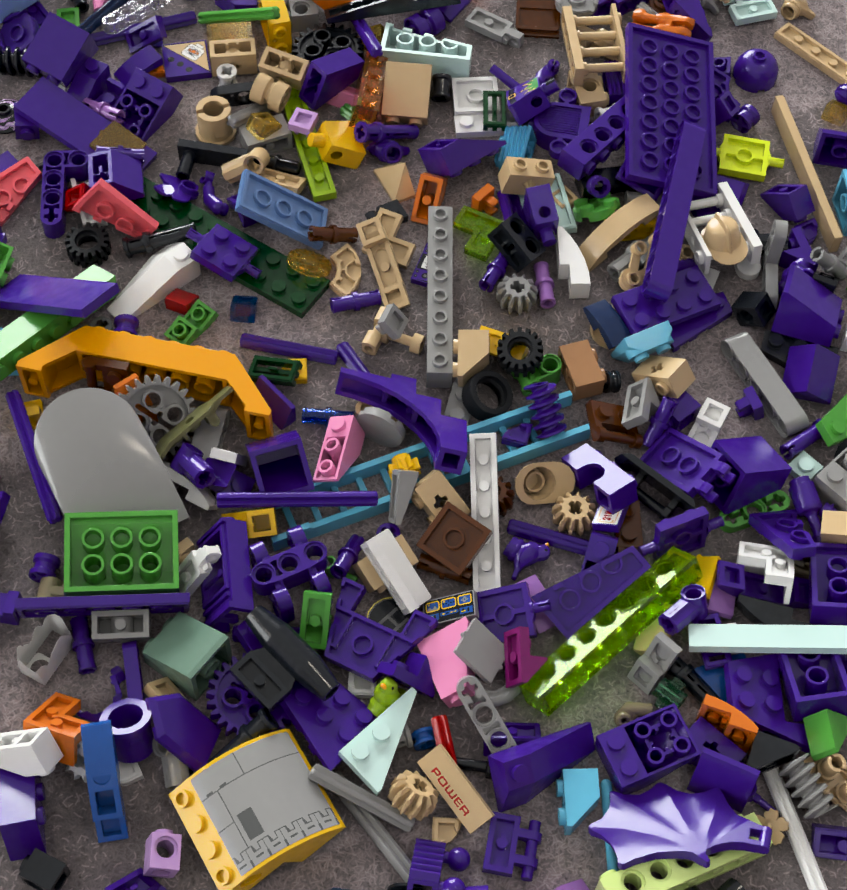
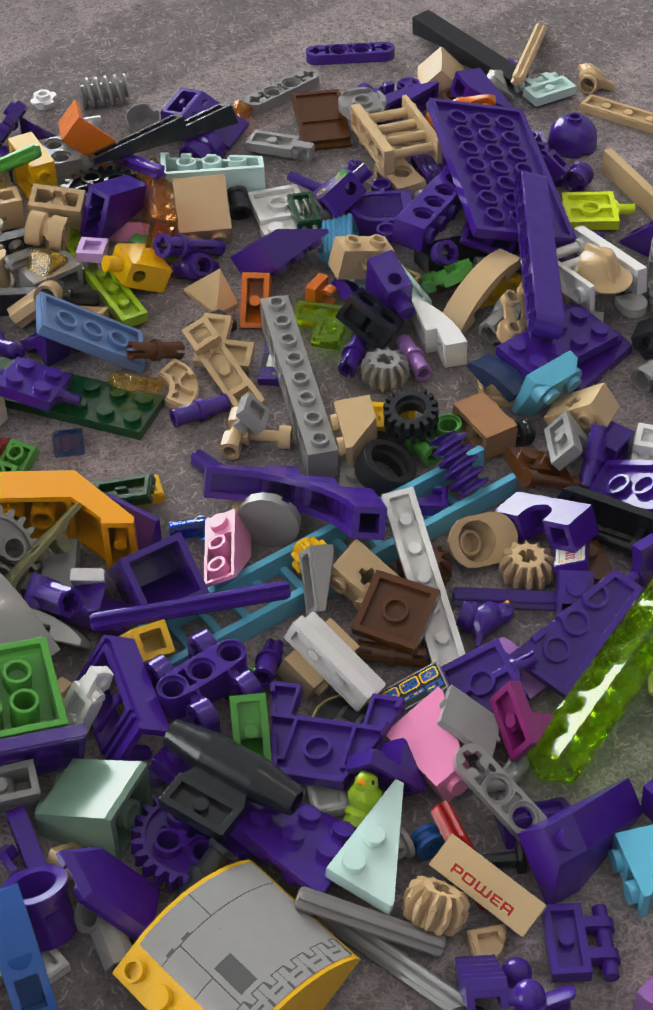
camera: 10 degrees left, 15 degrees down
(288, 348) = (118, 469): dark purple axle -> none

